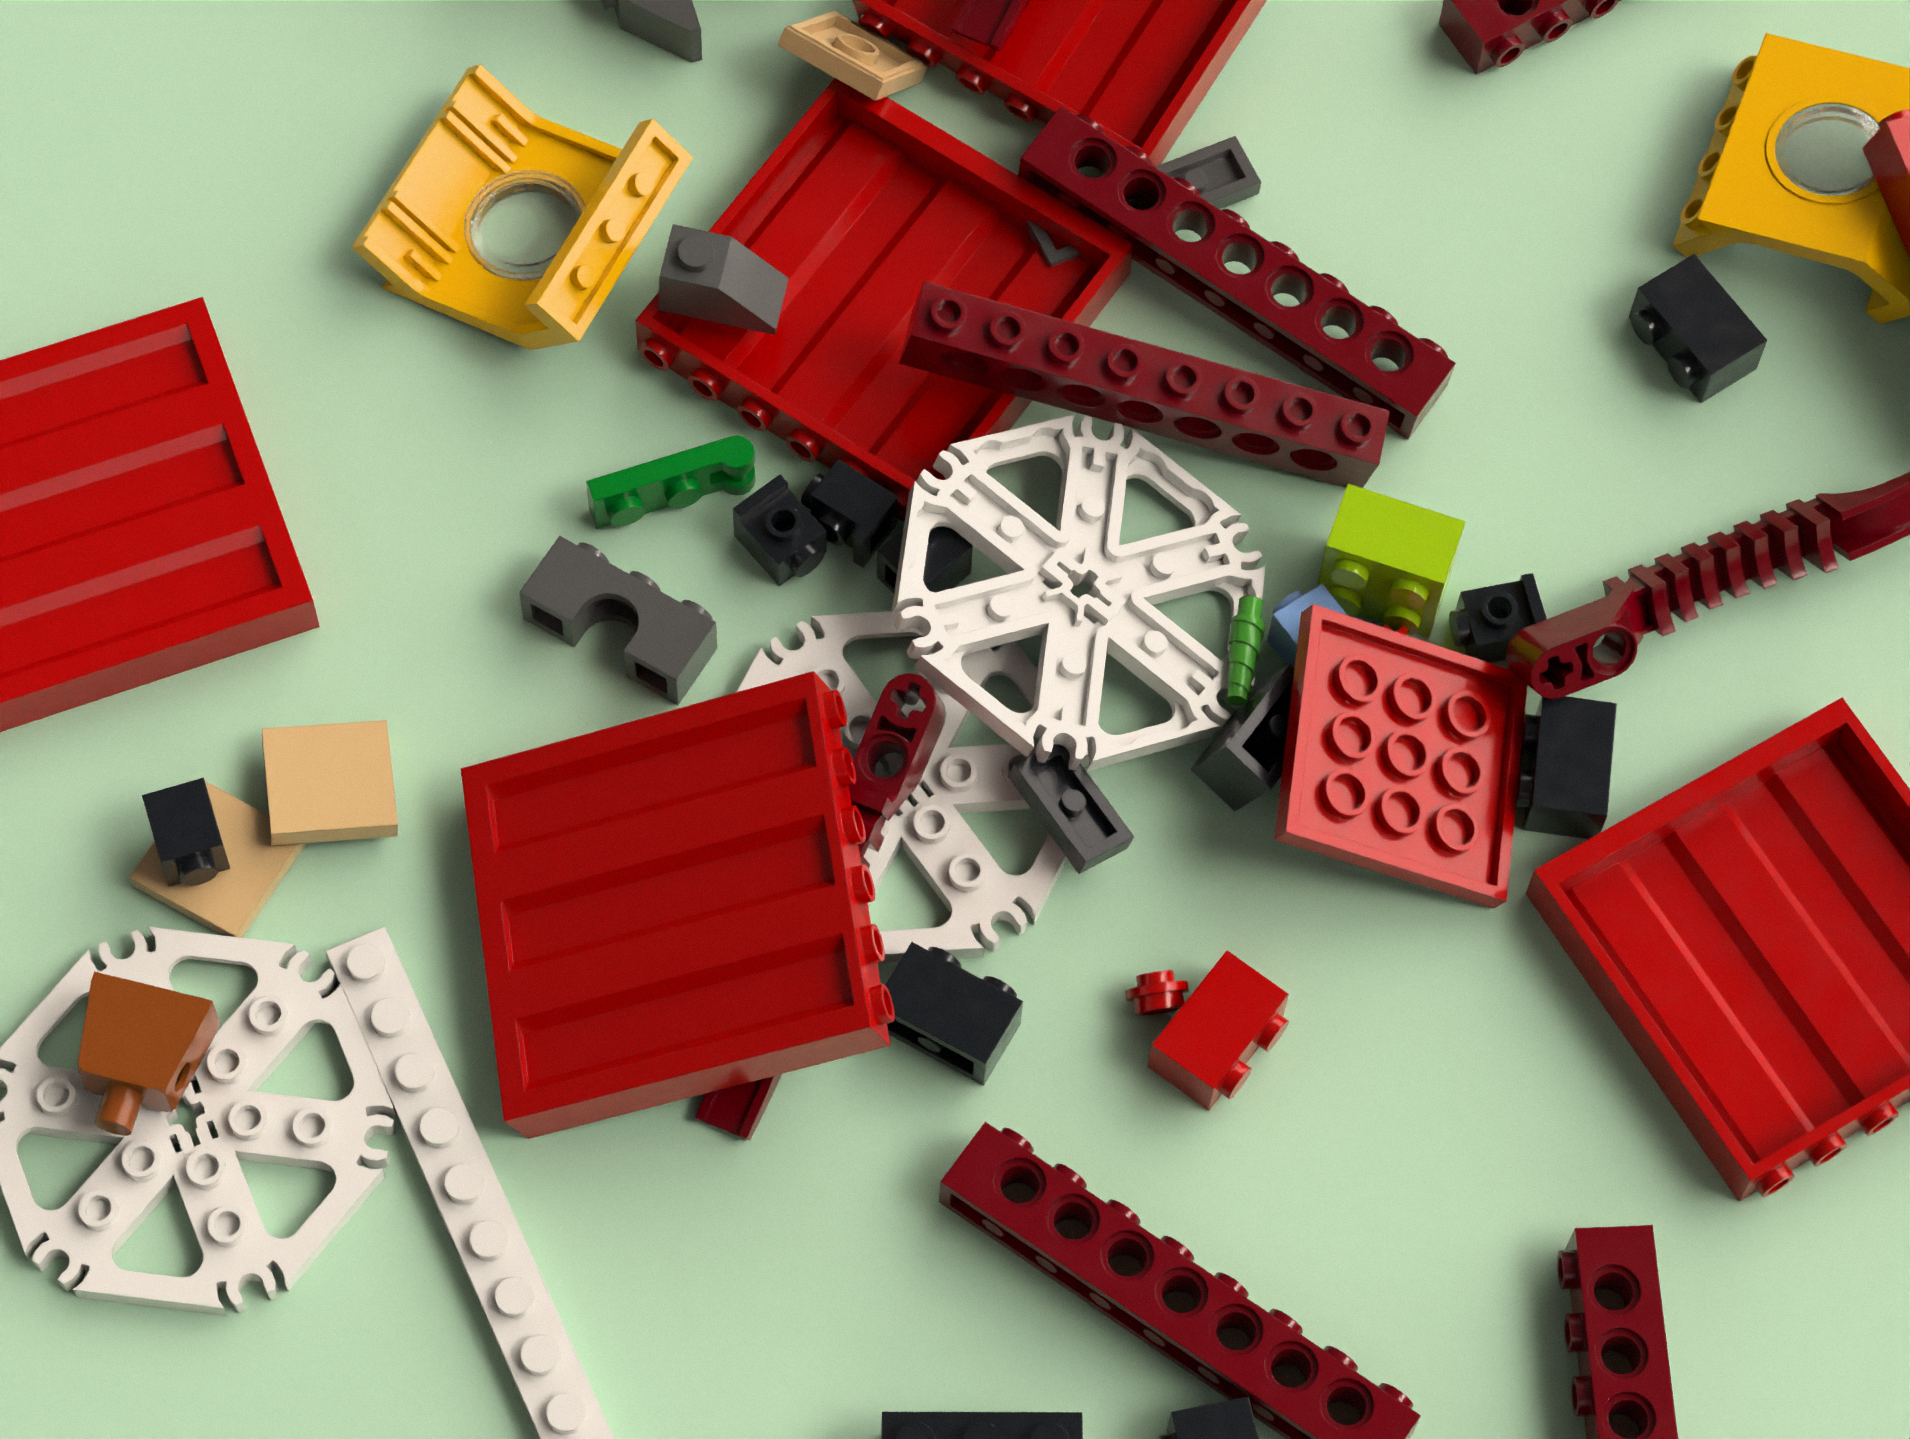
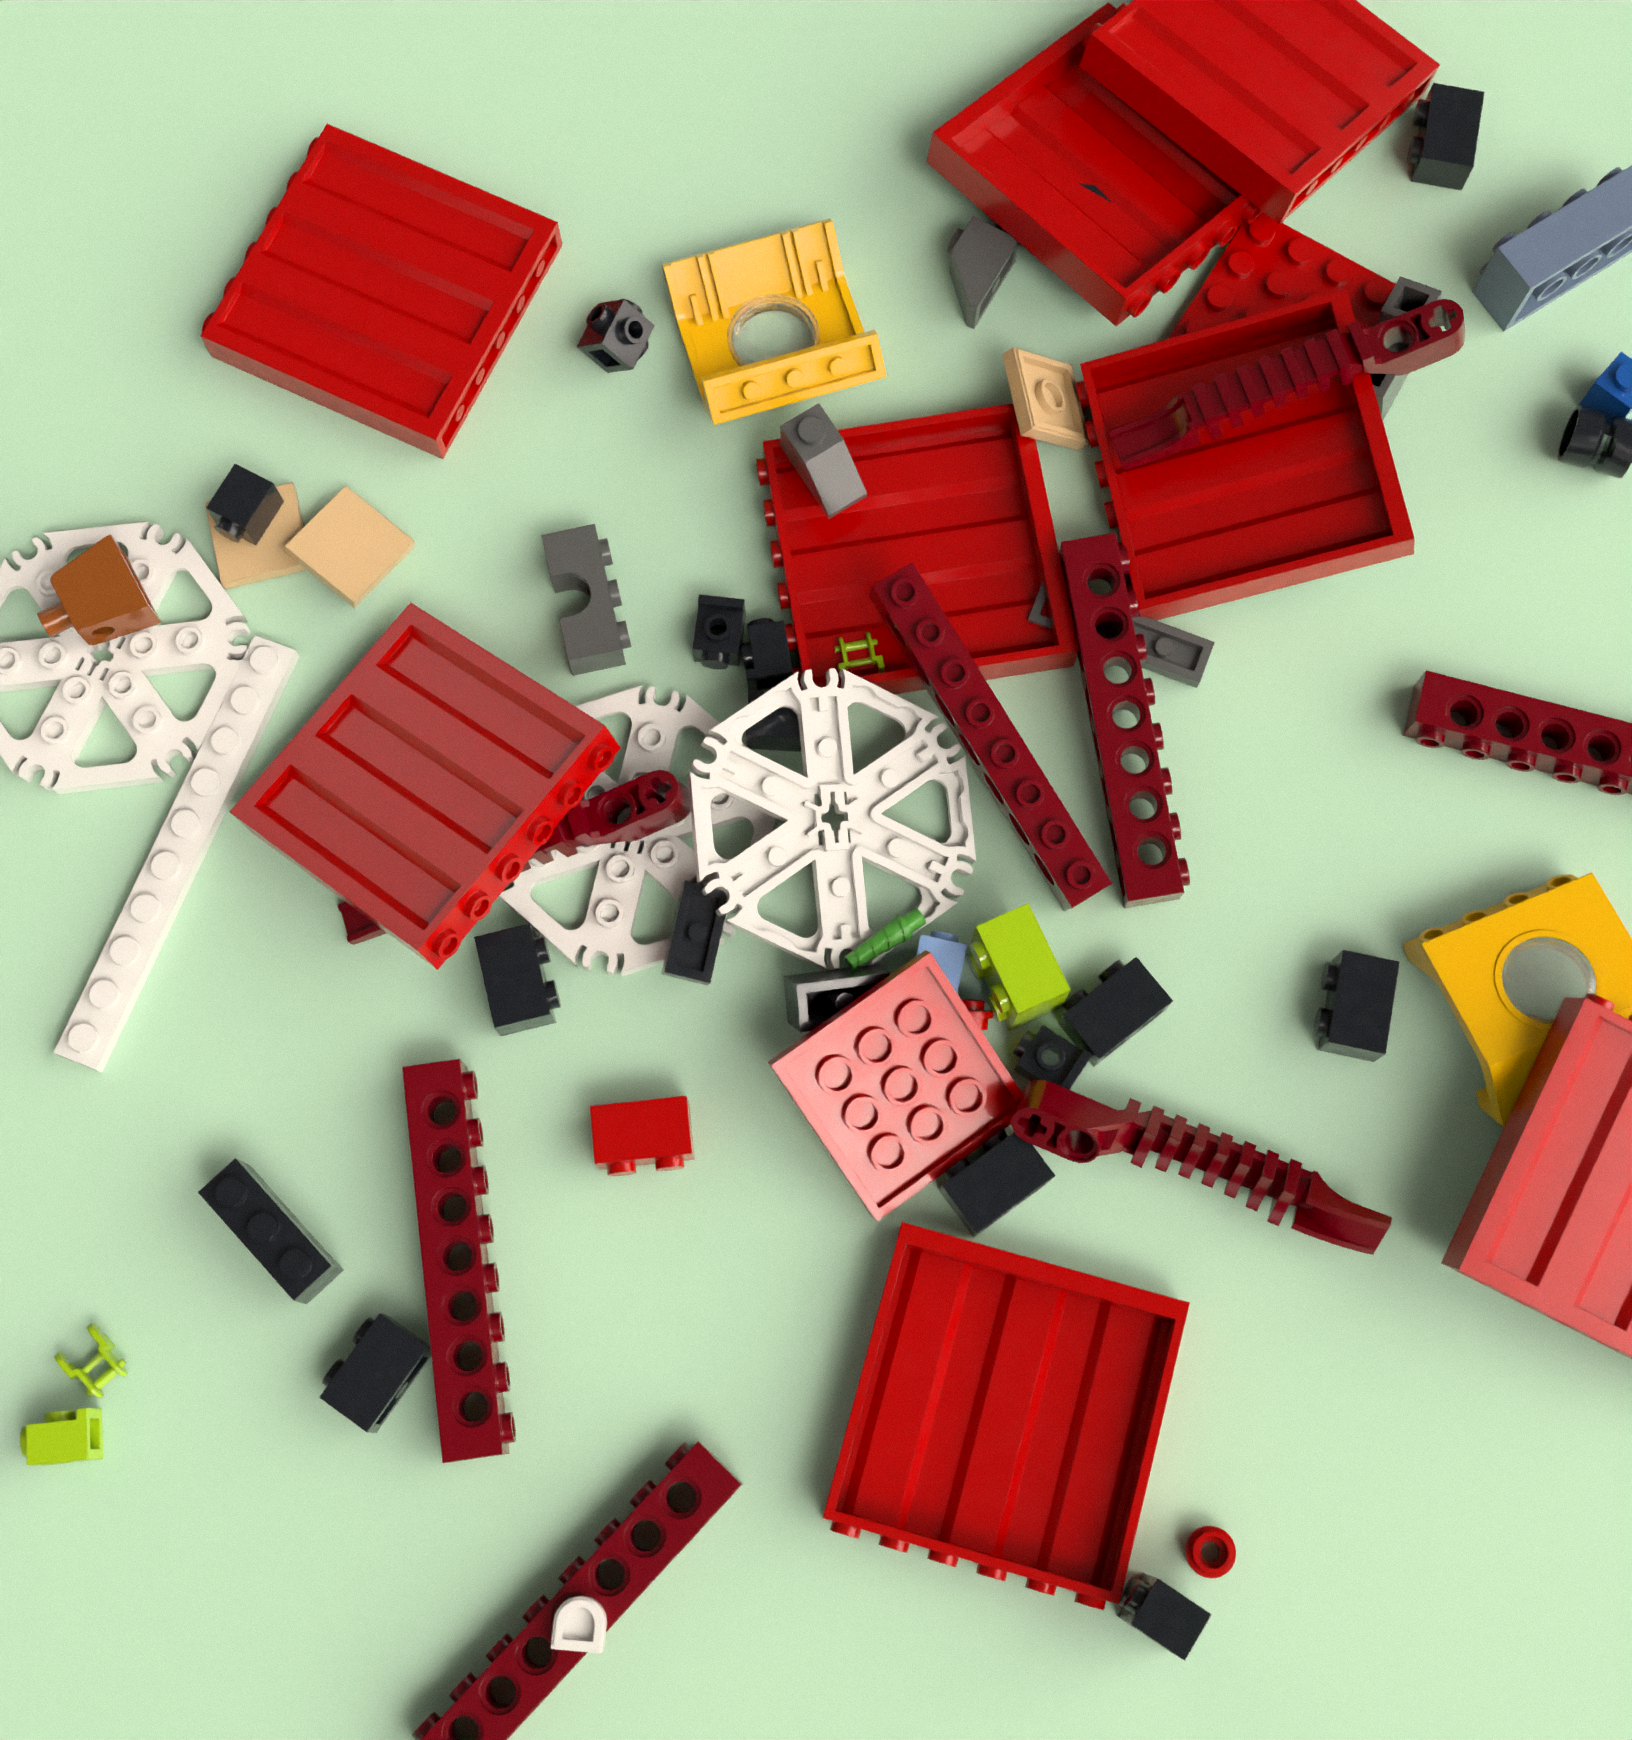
camera: 50 degrees right, 10 degrees up
(376, 354) = (616, 335): none -> black brick
(672, 481) = (692, 550): green plate -> none
(930, 415) = (860, 644): none -> lime piece
(1157, 993) = (634, 1080): red plate -> none
(1503, 521) = (1114, 1009): none -> black brick

